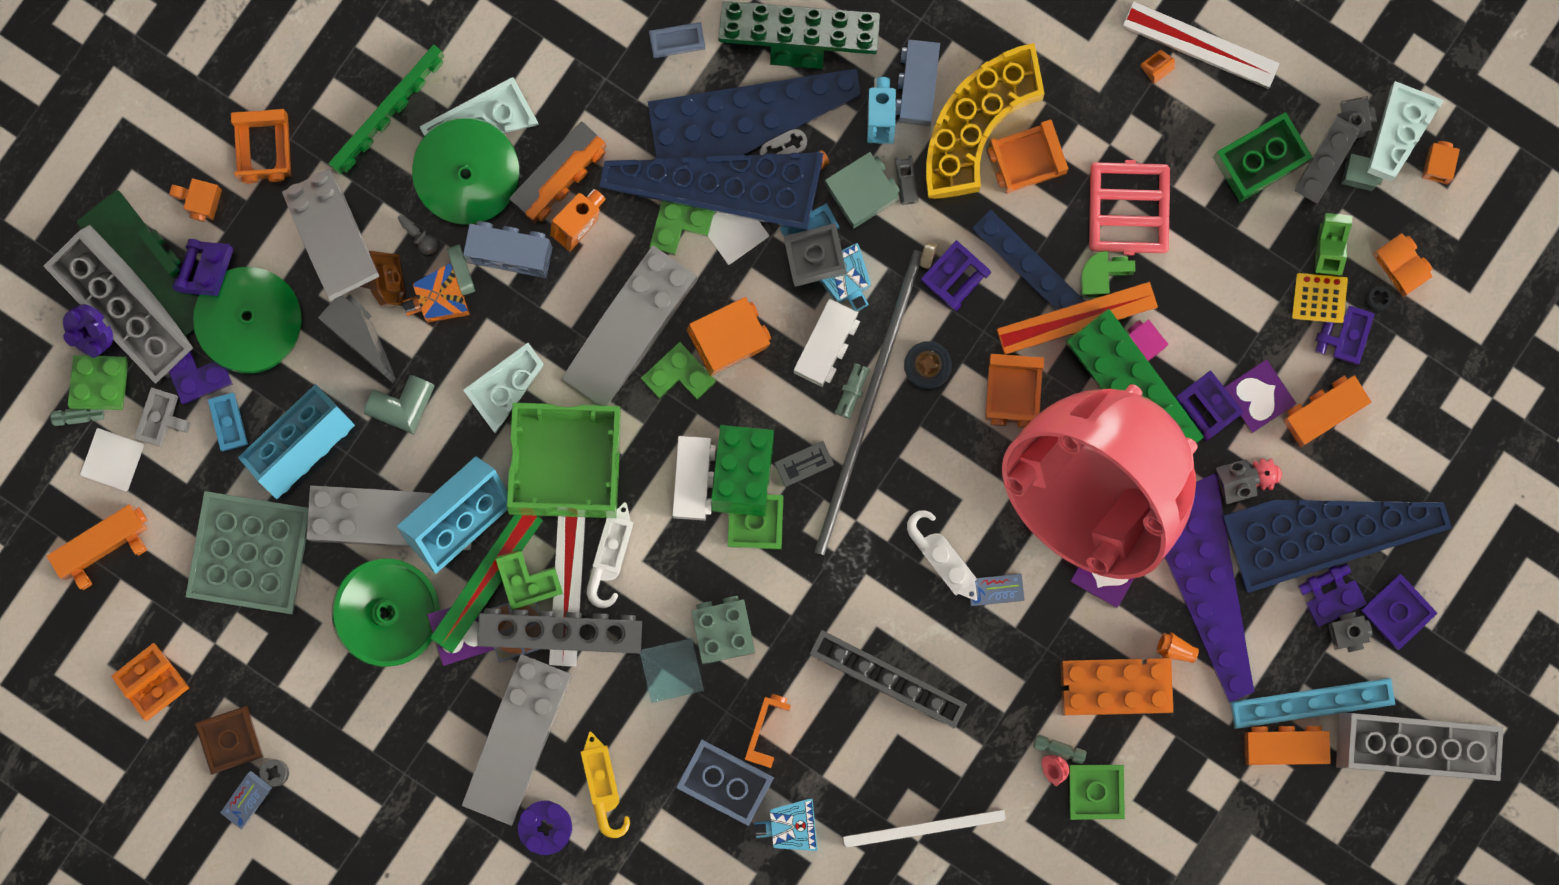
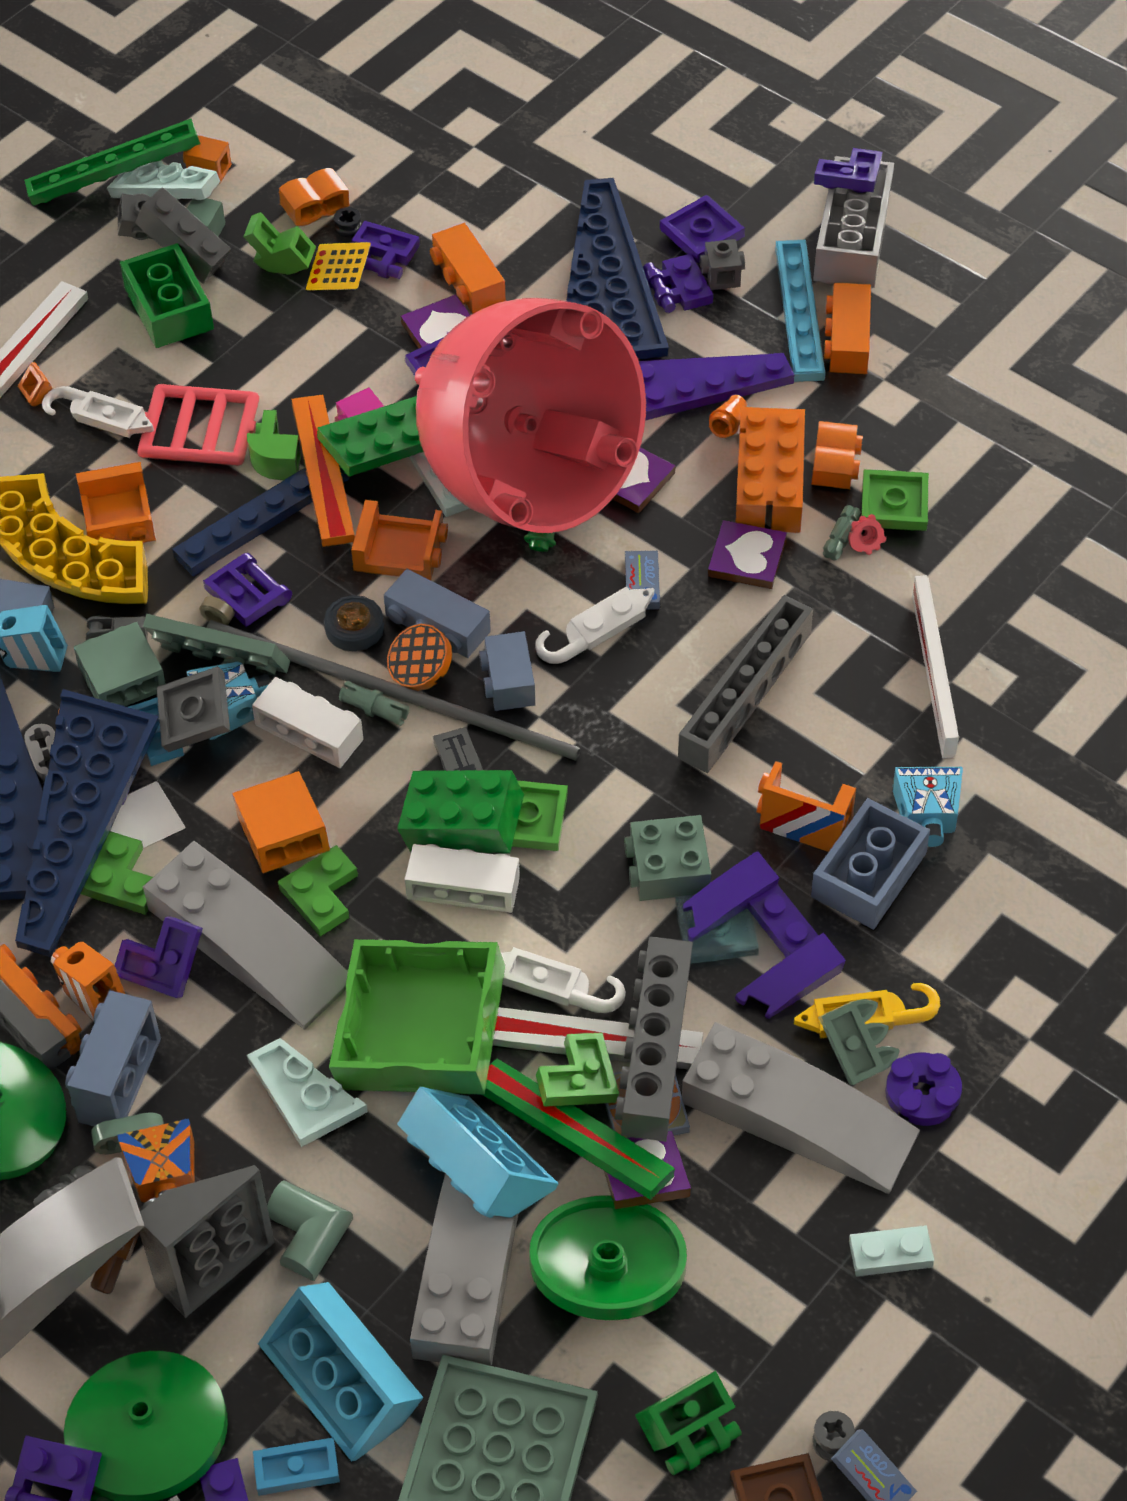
camera: 85 degrees left, 30 degrees down
(274, 675) = (685, 1412): none -> green brick
(415, 808) = (891, 1250): none -> light aqua plate
(569, 777) = (856, 1041): none -> sand green plate
(595, 269) = (167, 965): none -> dark purple plate
(696, 697) = (755, 887): none -> dark purple wedge
(885, 262) = (210, 642): none -> sand green plate
(885, 492) = (508, 670): none -> sand blue brick
(893, 421) = (419, 657): none -> tile
(940, 428) = (420, 601): none -> sand blue brick
(1030, 673) = (747, 554): none -> tile
(1132, 124) = (101, 411): none -> white plate
(1139, 740) = (835, 455): none -> orange brick
(1419, 81) = (112, 162): none -> green plate
(1461, 745) = (857, 175): none -> dark purple plate

